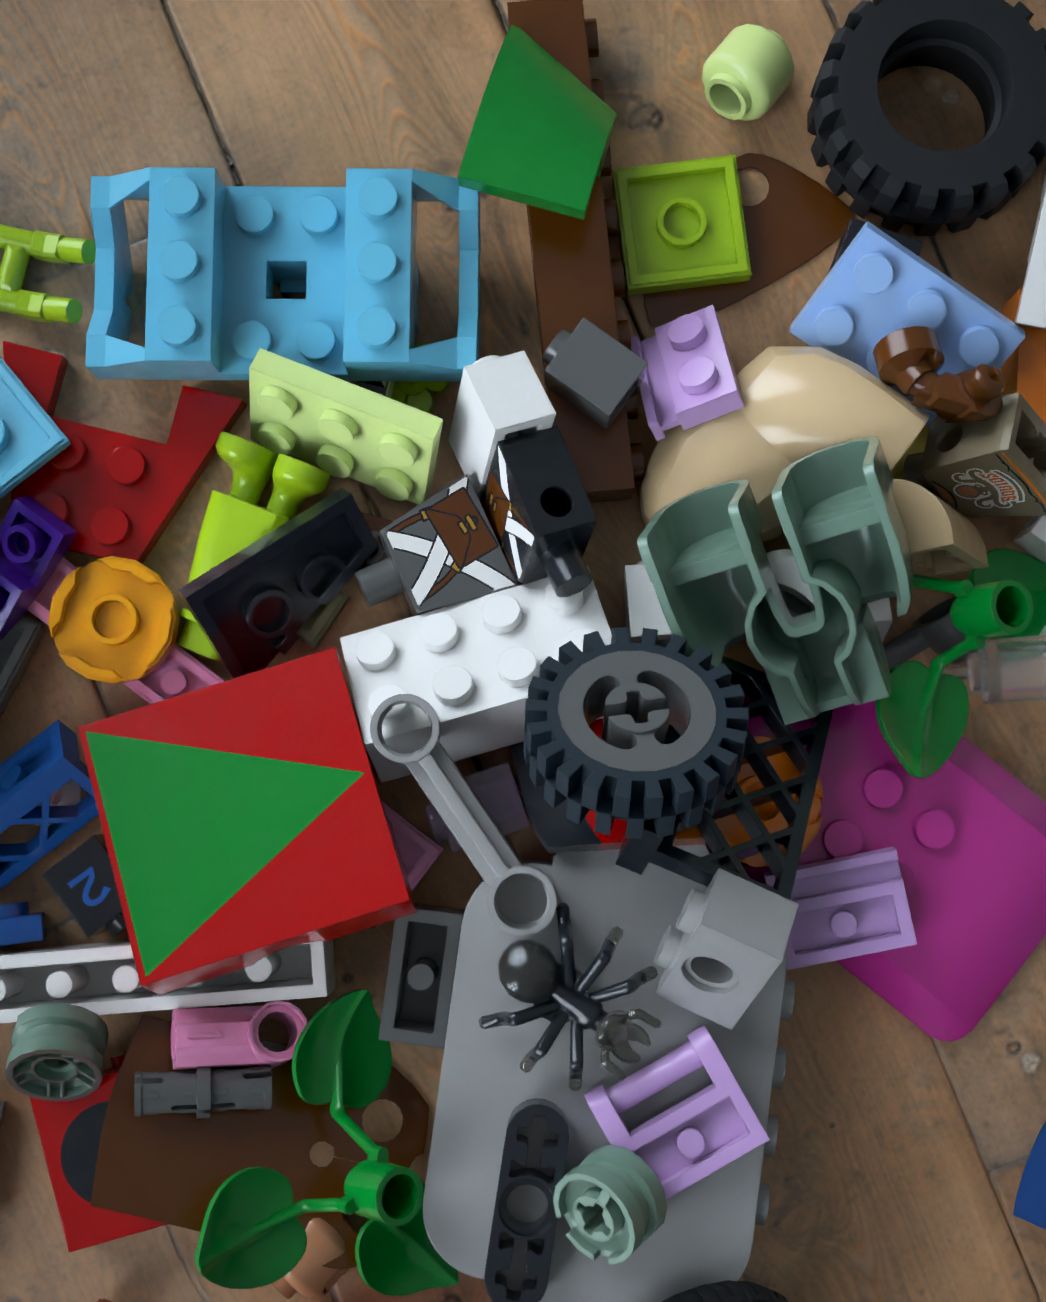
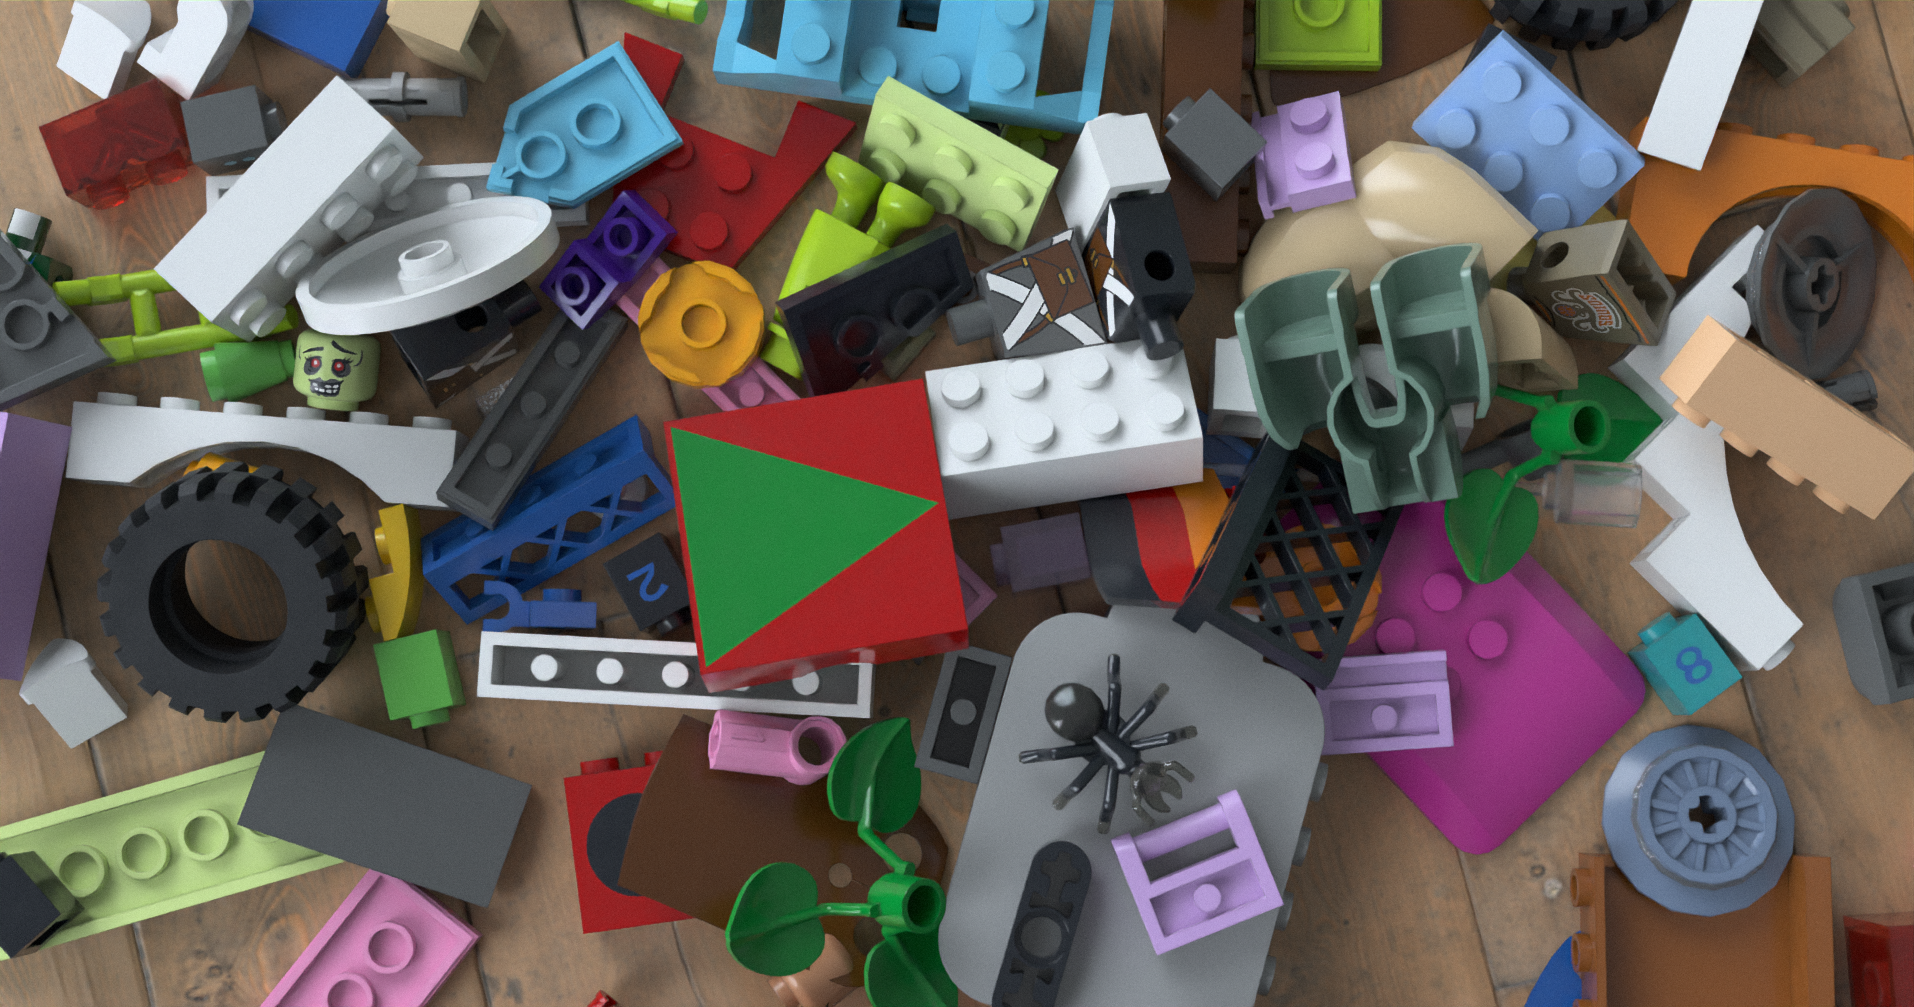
camera: 10 degrees right, 0 degrees up
(57, 1052) = (600, 736): sand green wheel -> none
(202, 1091) = (736, 792): dark grey pin -> none
(463, 815) = (1030, 554): light grey piece -> none
(610, 1203) = (1123, 942): sand green wheel -> none
(631, 768) = (1200, 525): wheel -> none
(724, 947) = (1266, 713): light grey brick -> none
(911, 362) = (1529, 172): reddish brown arm -> none

